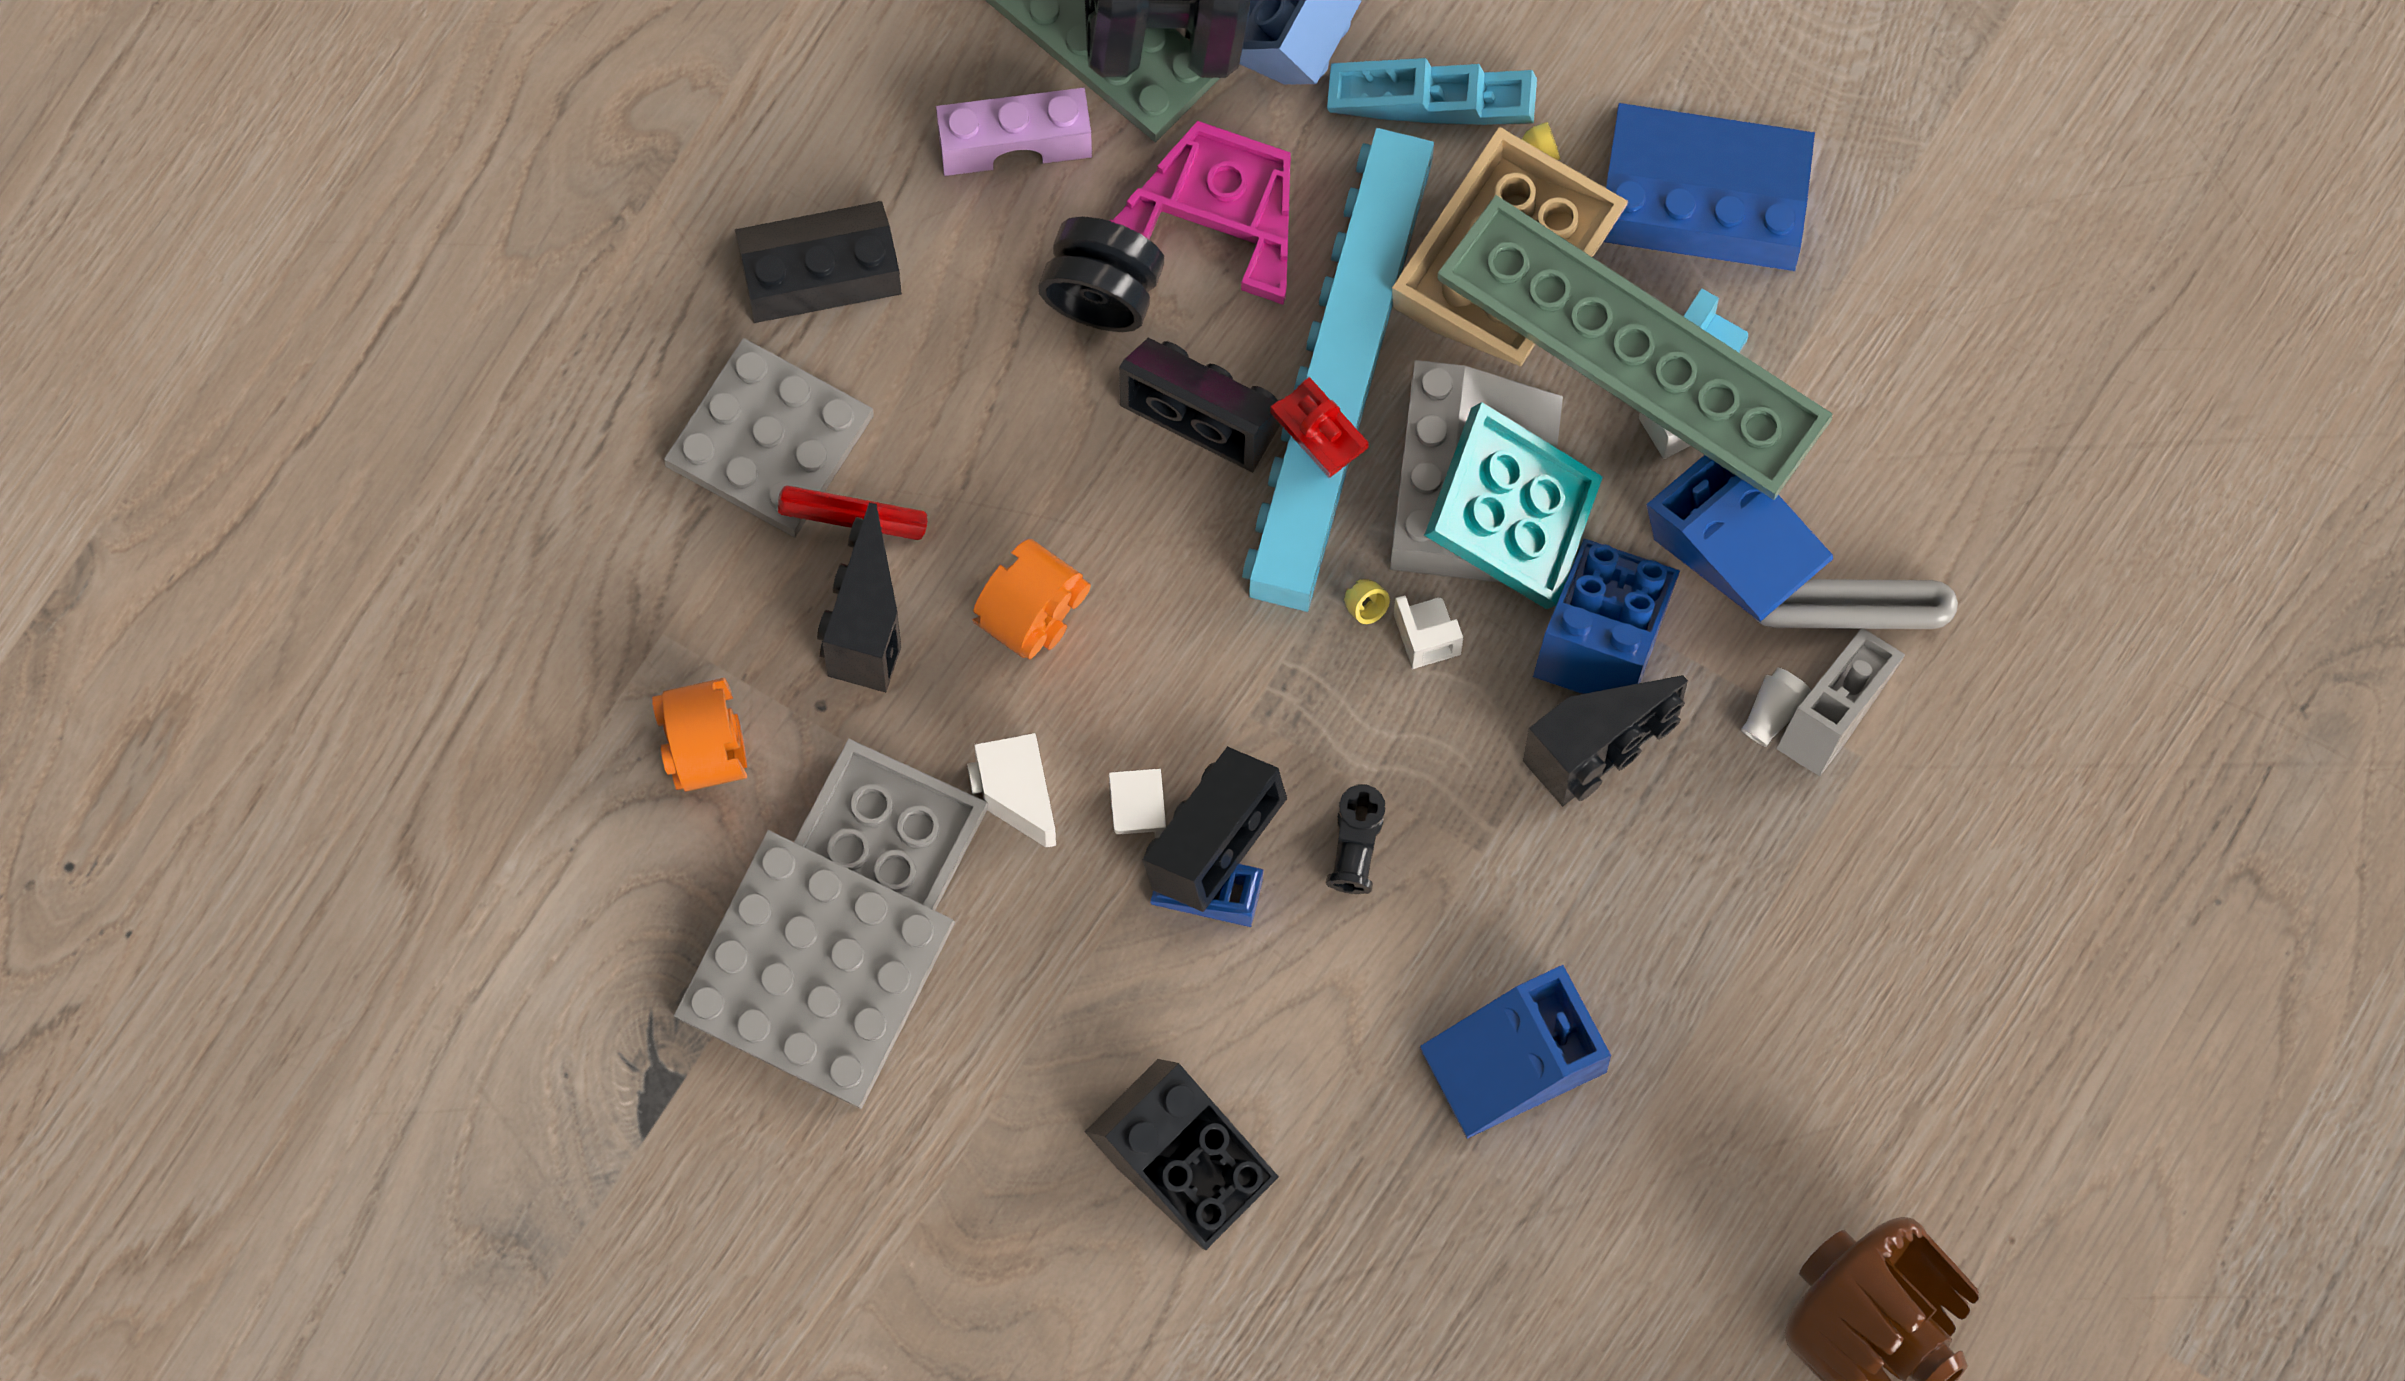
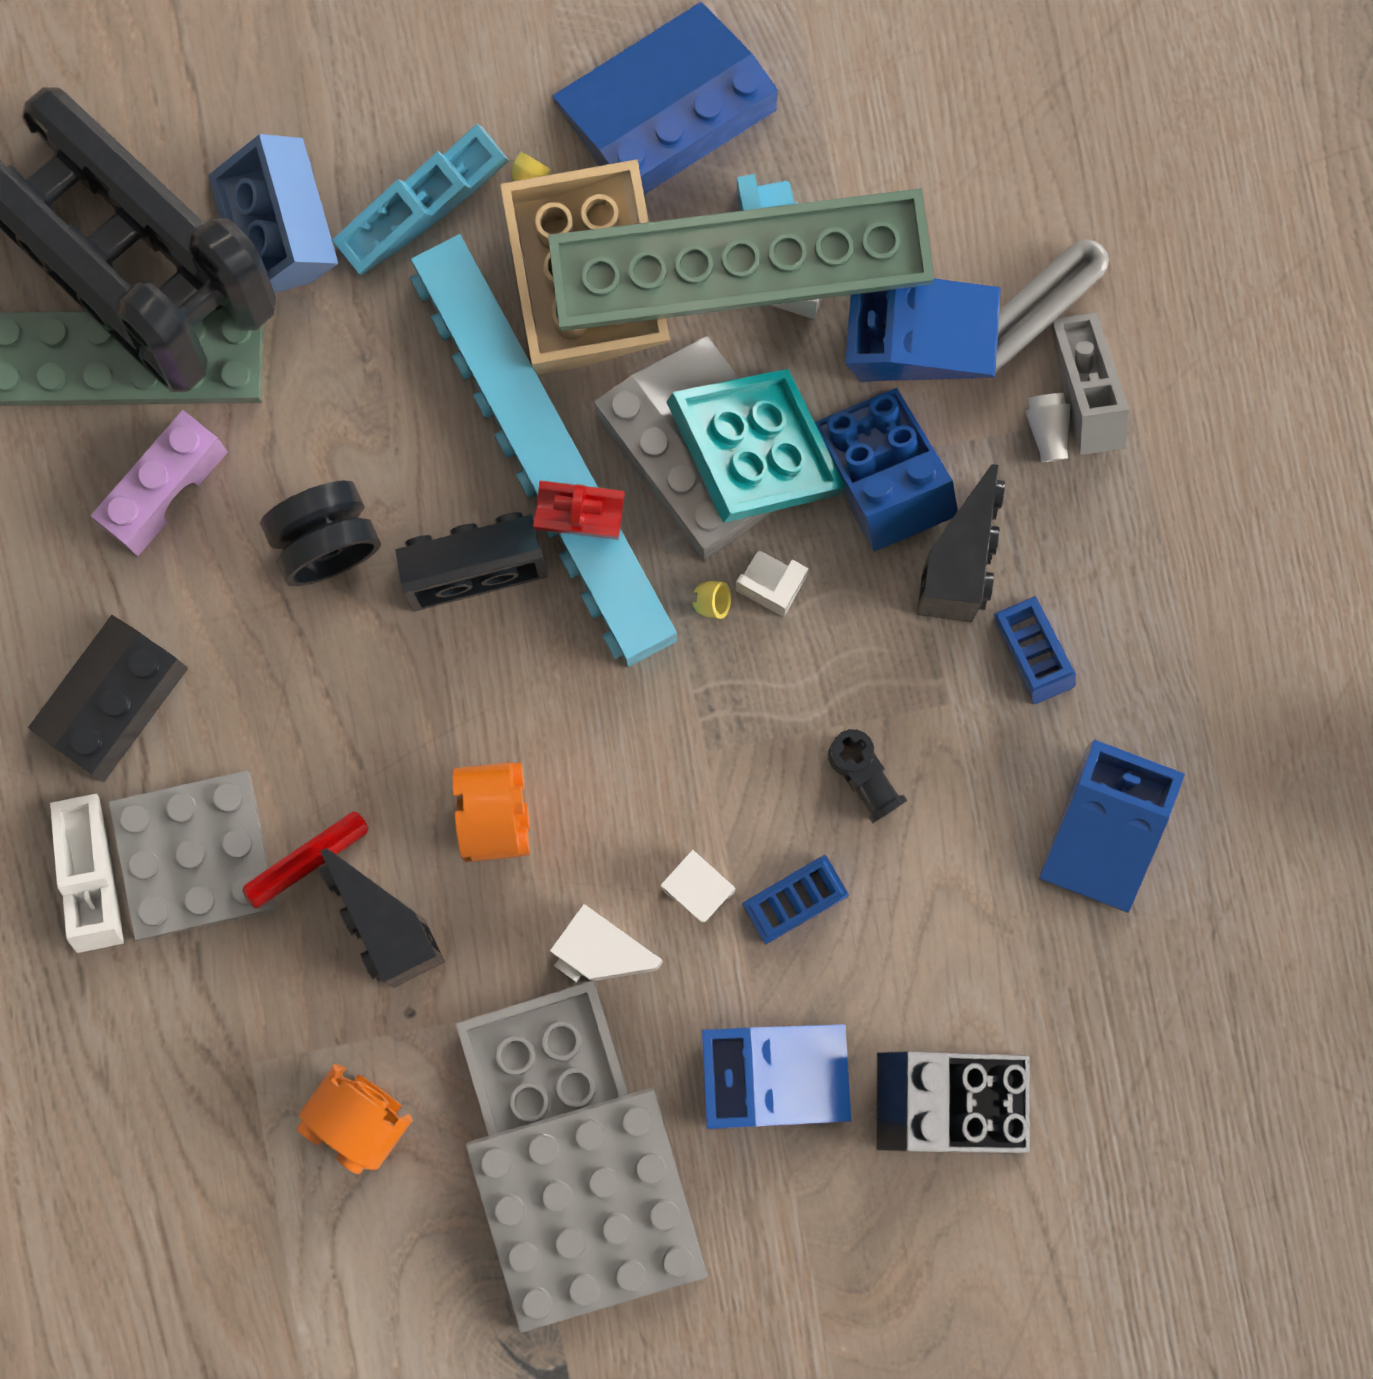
camera: 40 degrees left, 10 degrees up
(673, 377) = (85, 874): none -> white slope
(1057, 1000) = (776, 1076): none -> slope
(1214, 828) = (767, 858): black brick -> none
(1228, 187) = (343, 391): dark pink wing -> none
(1581, 901) = (1047, 686): none -> blue slope

